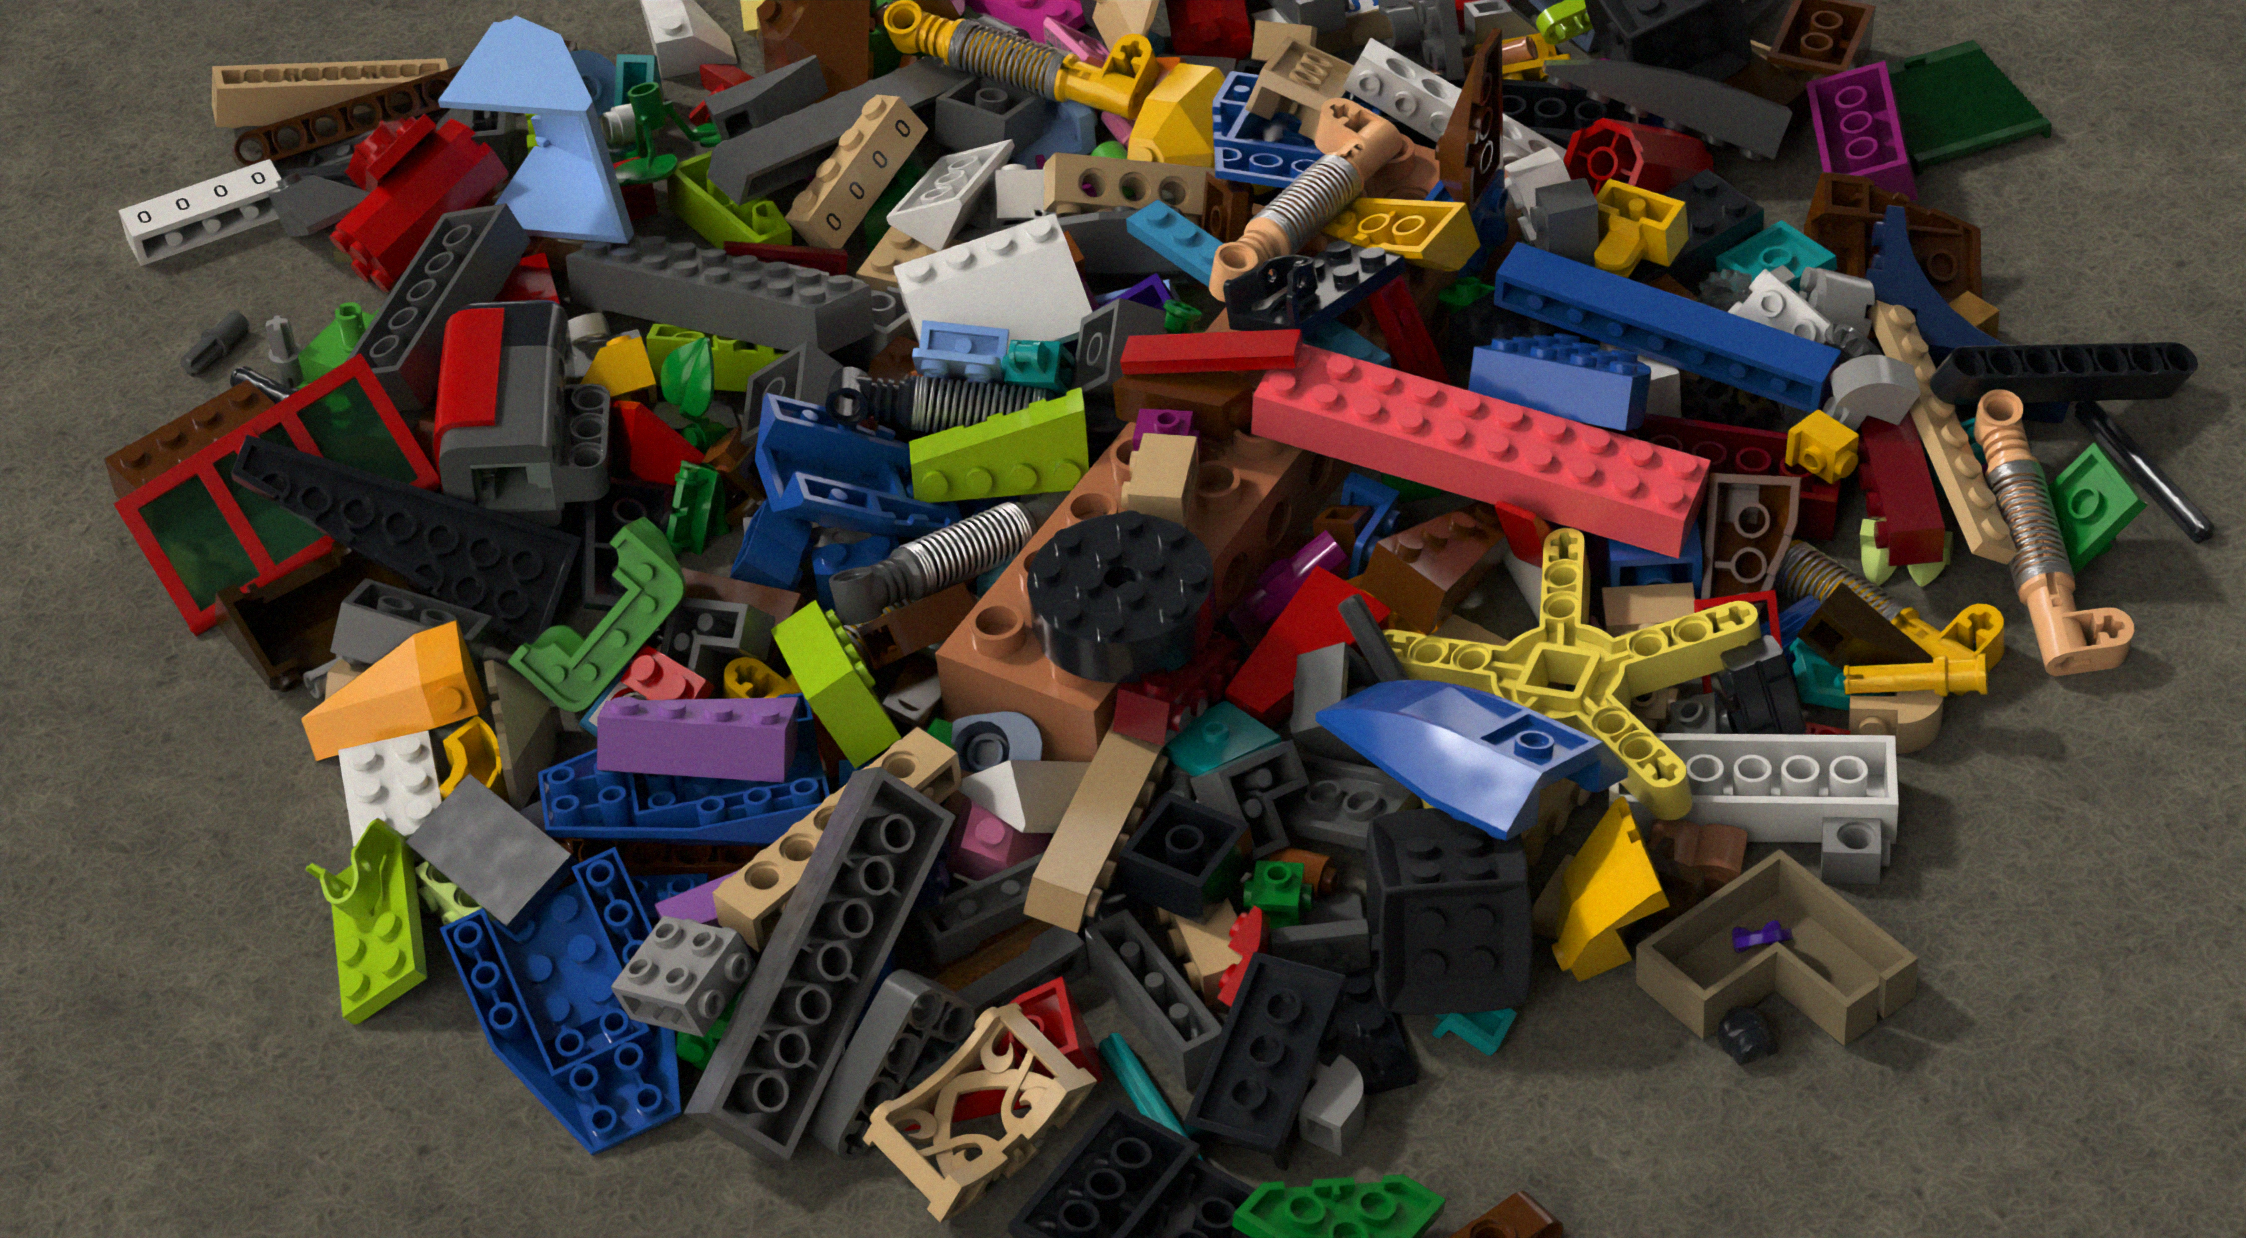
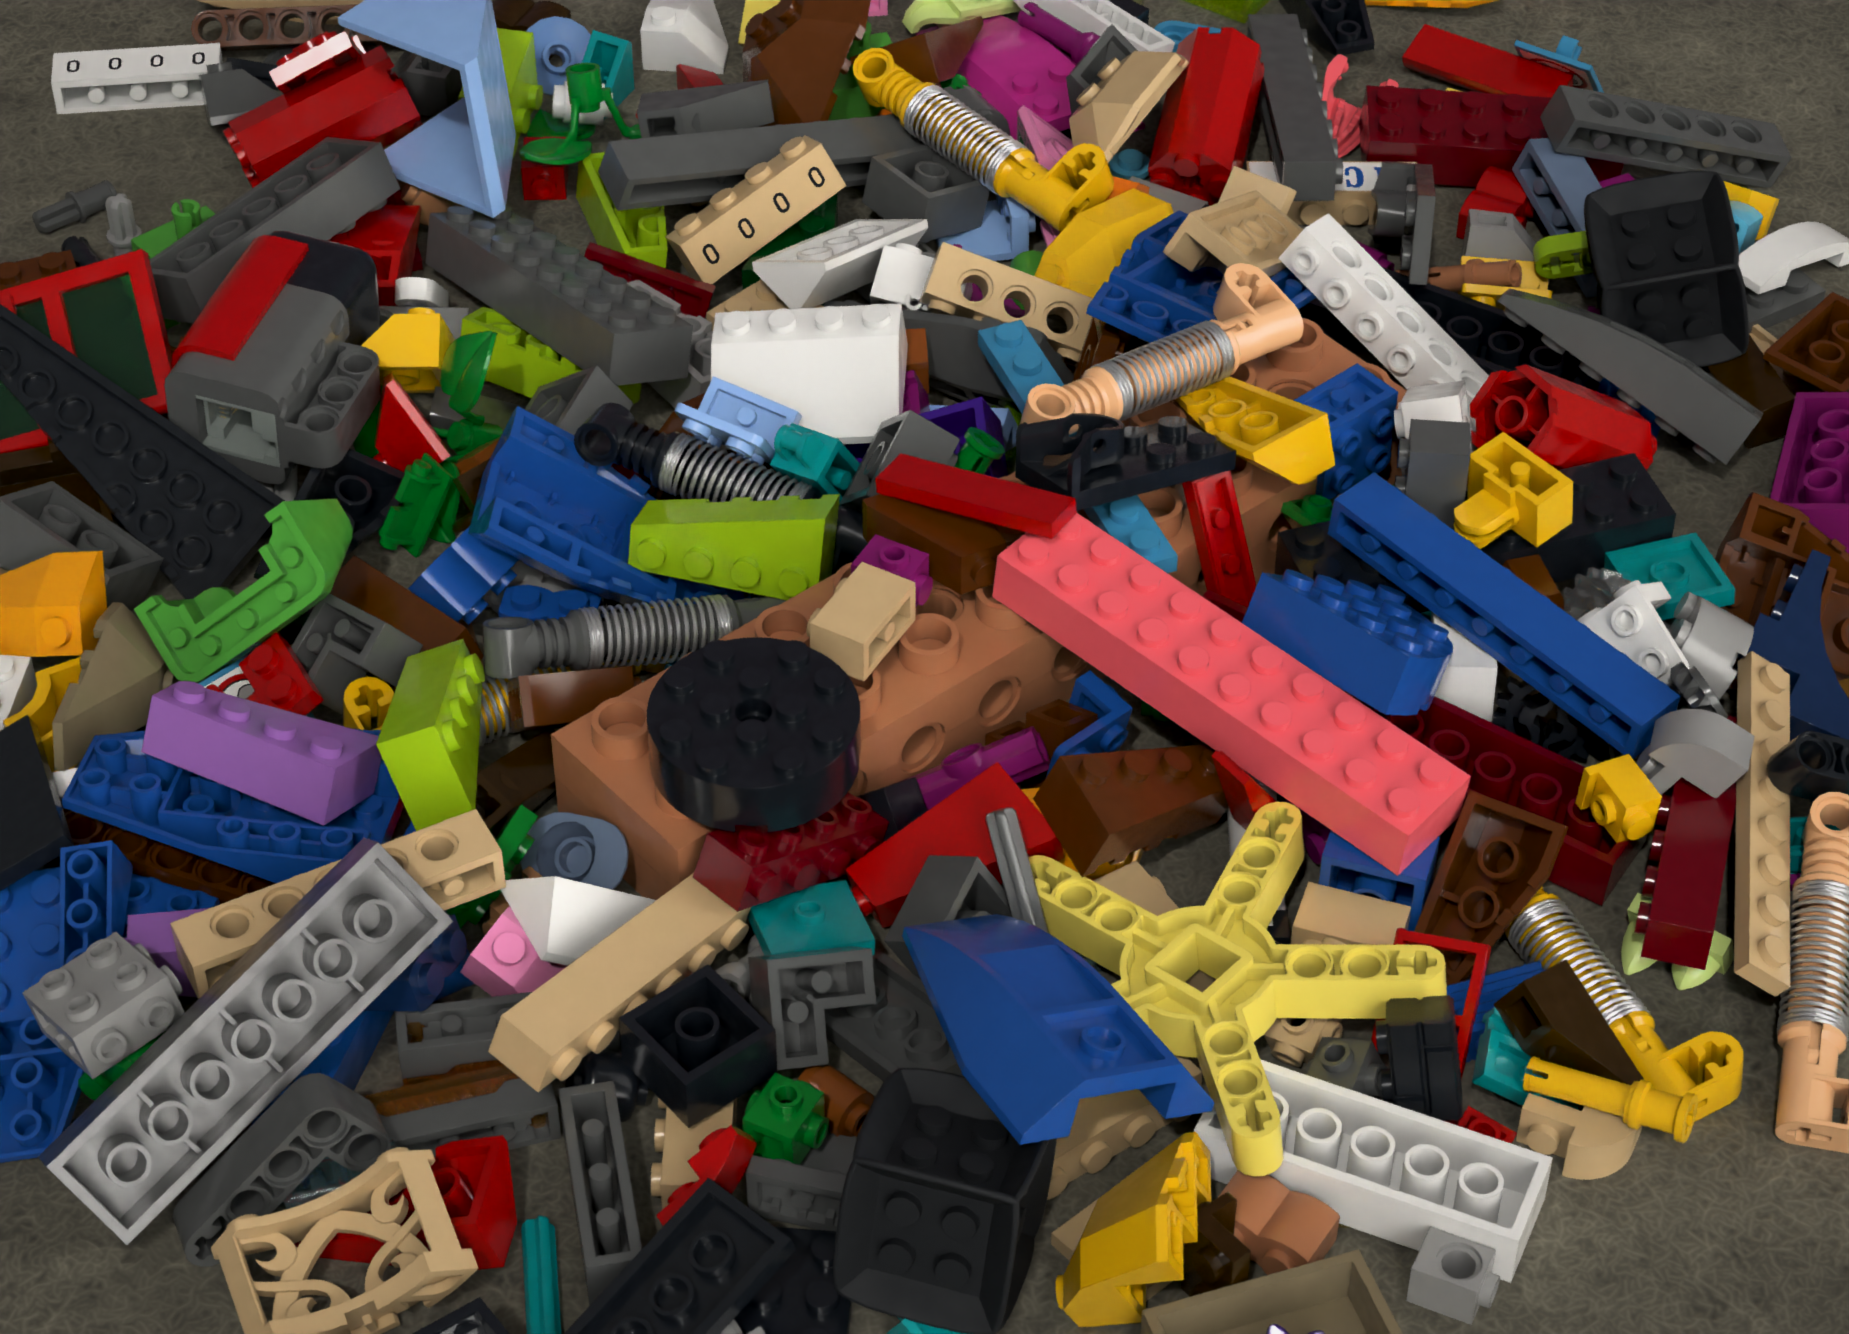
camera: 15 degrees right, 0 degrees up
(1473, 140) = (1370, 339): reddish brown wedge -> none

